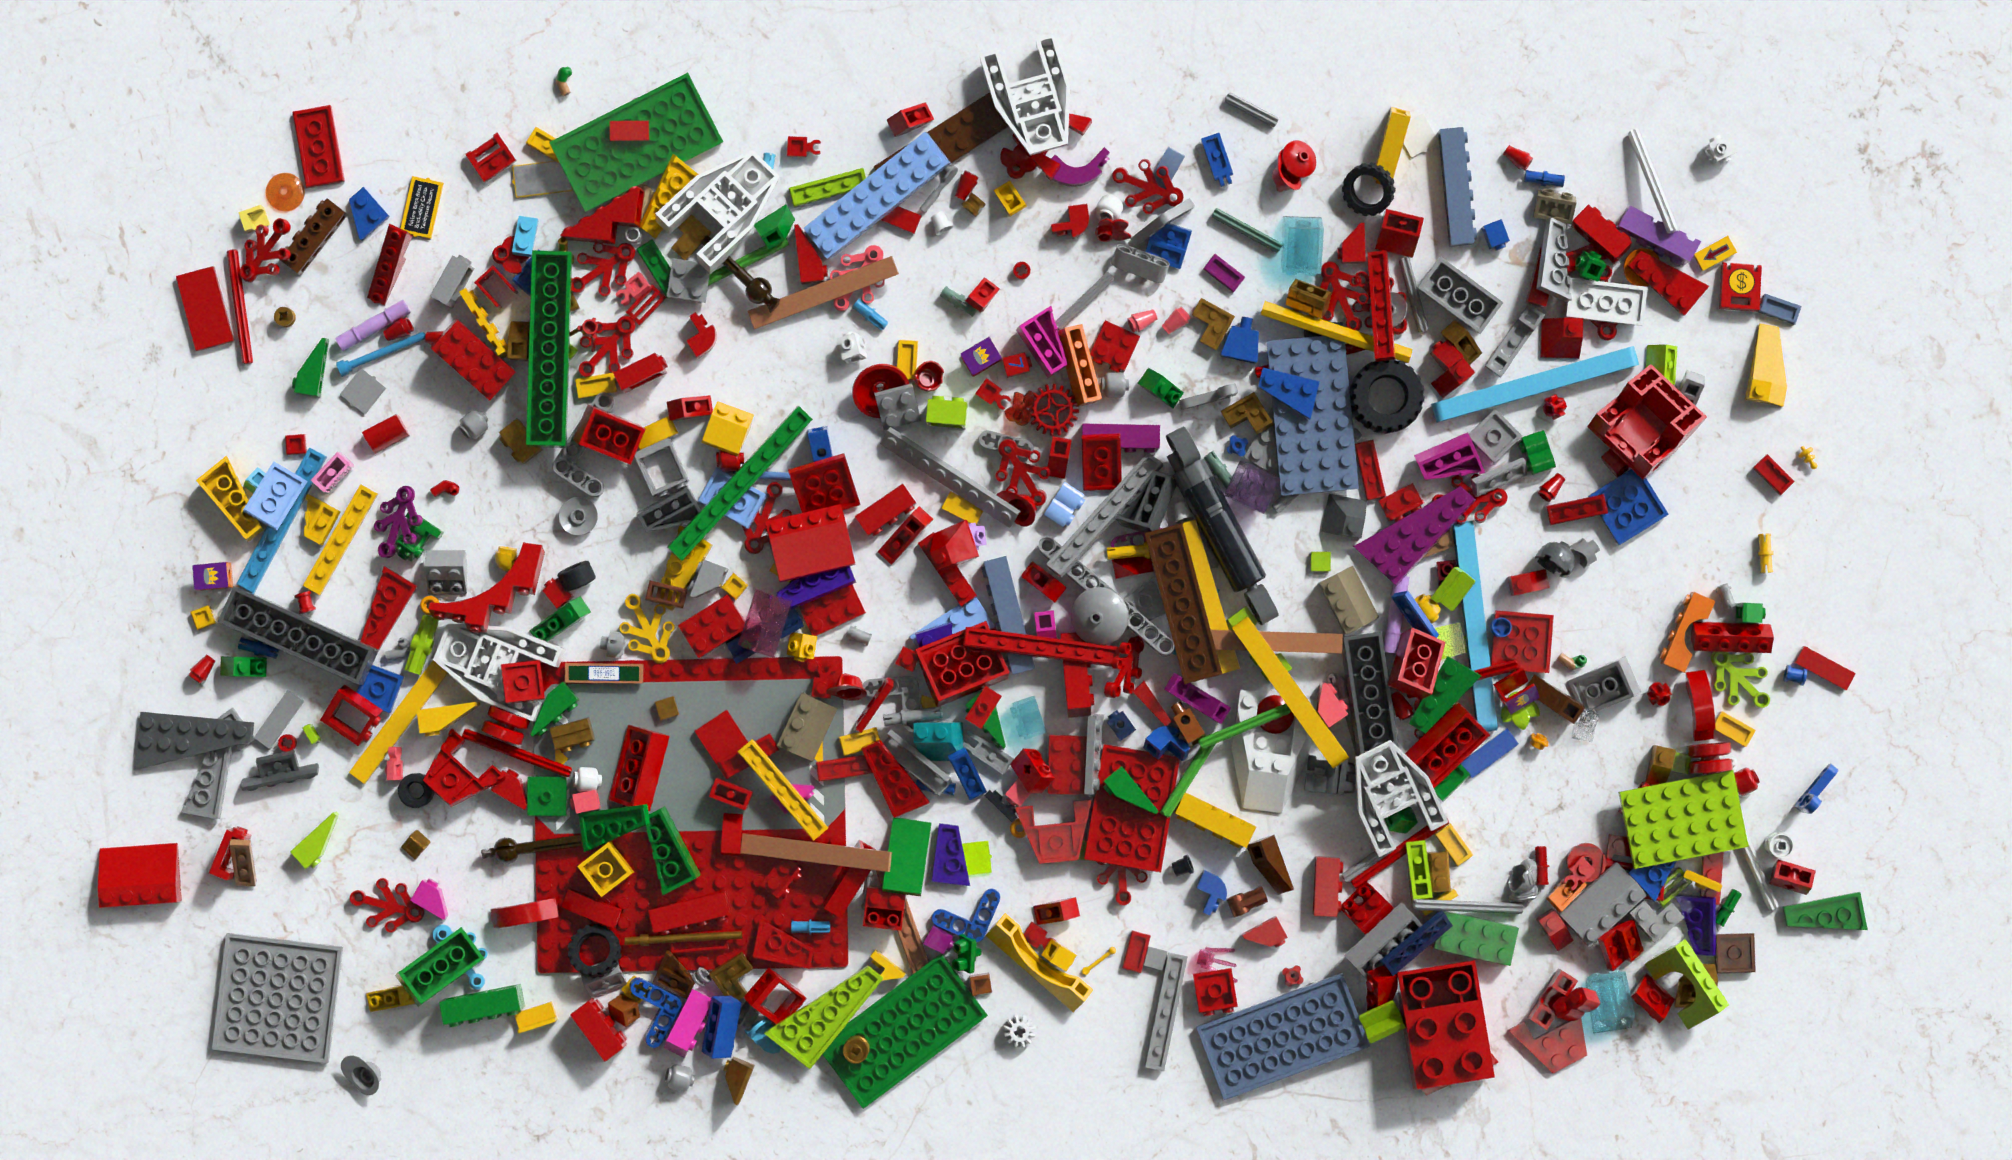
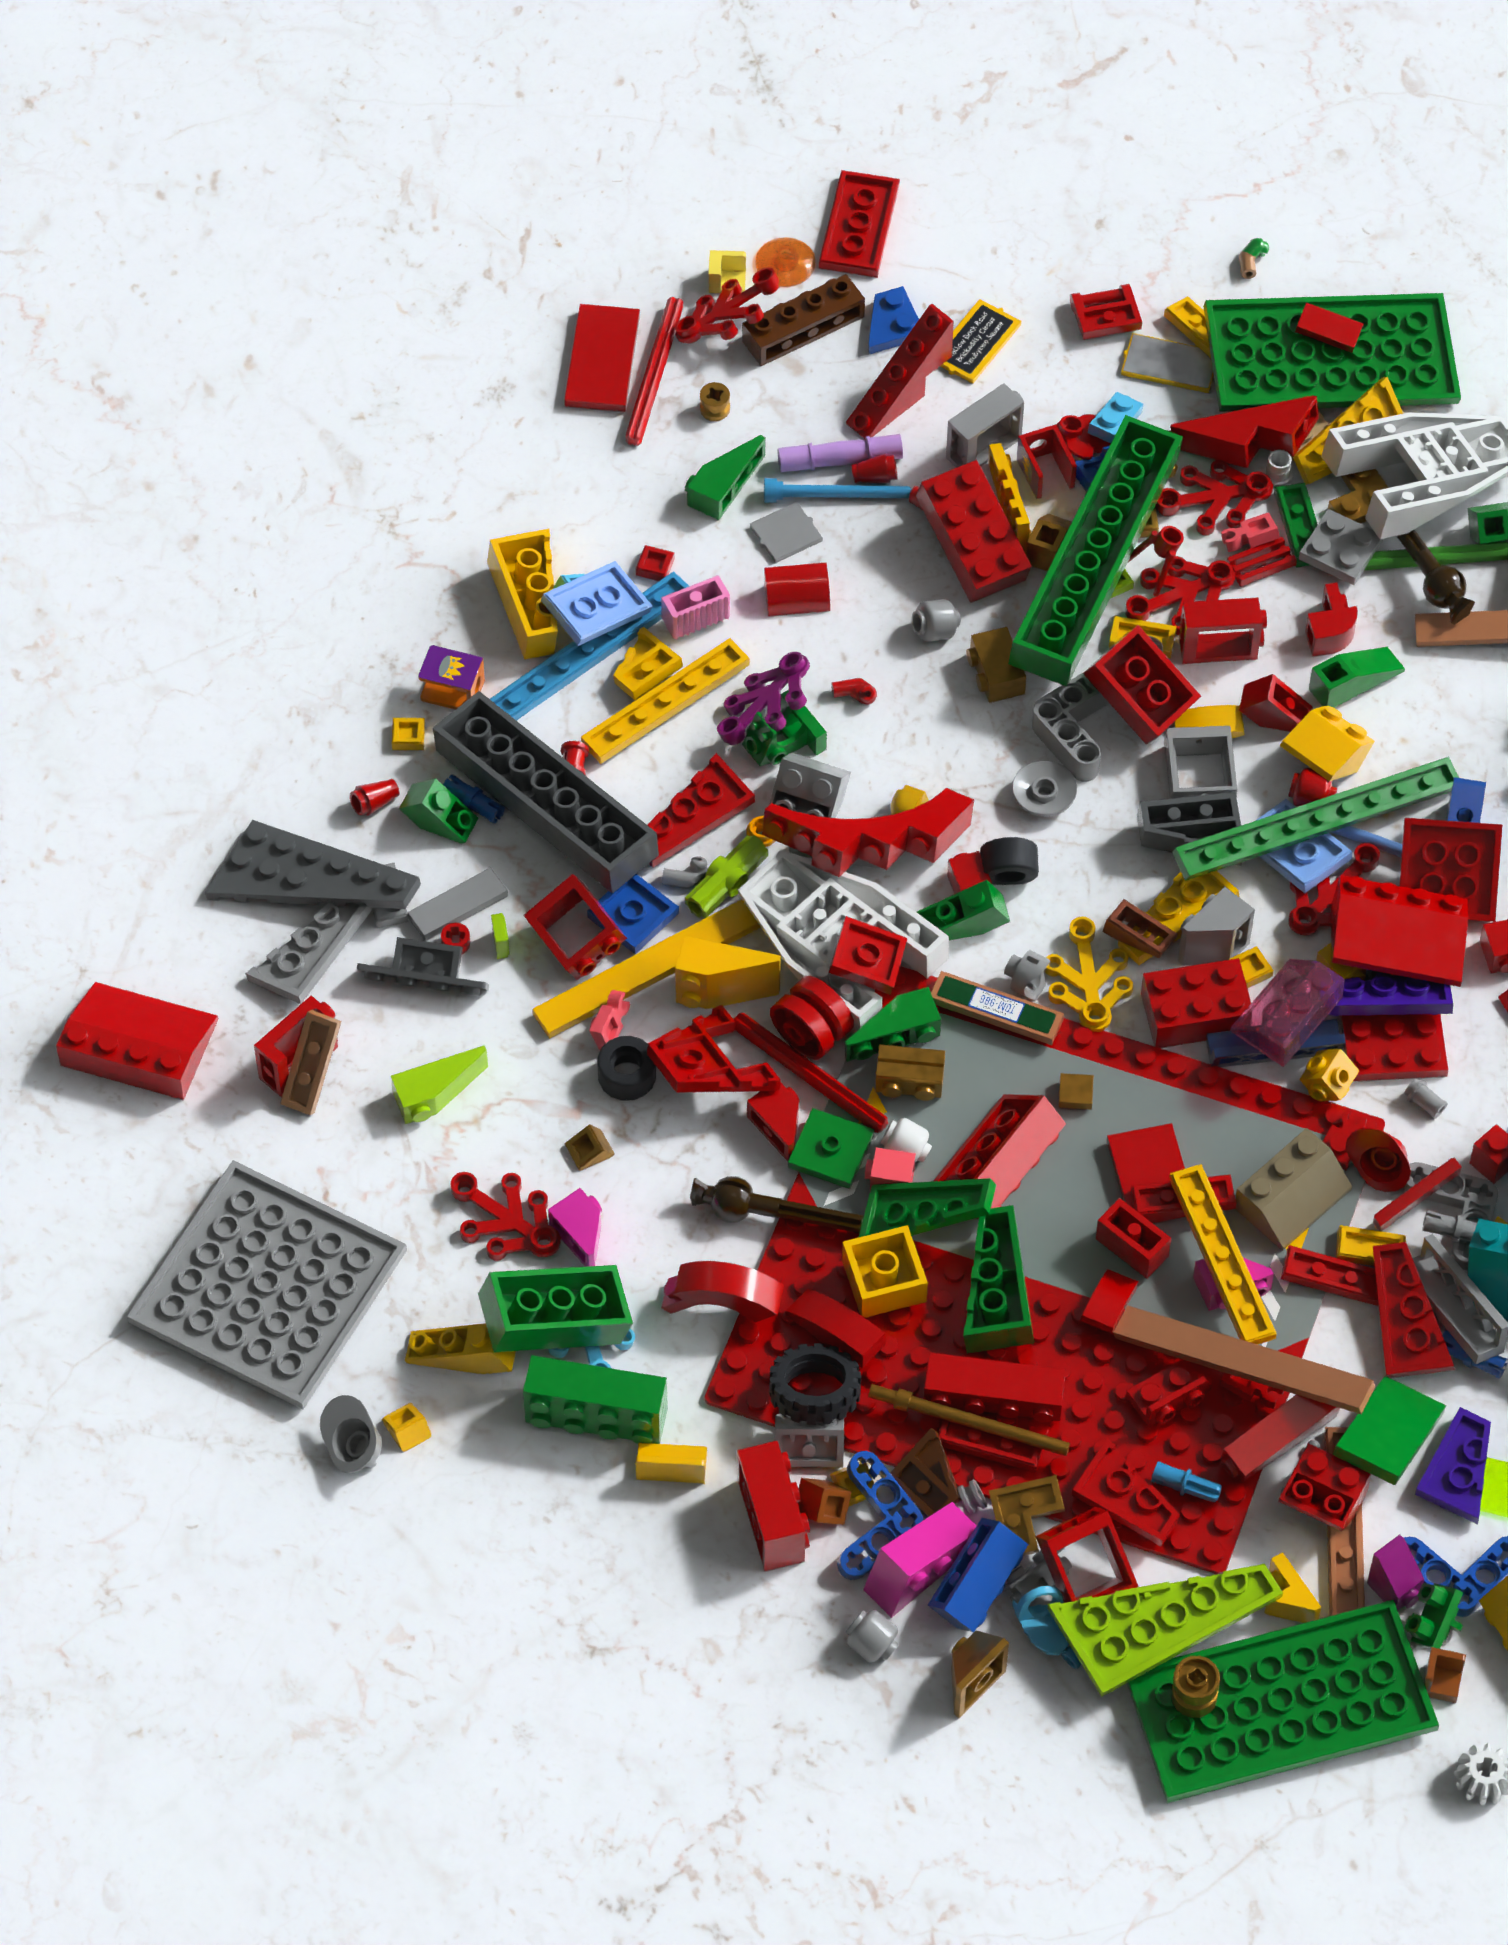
camera: 20 degrees right, 30 degrees down
(387, 1050) = (407, 1427): none -> yellow slope
(727, 367) = (1352, 674): none -> green slope

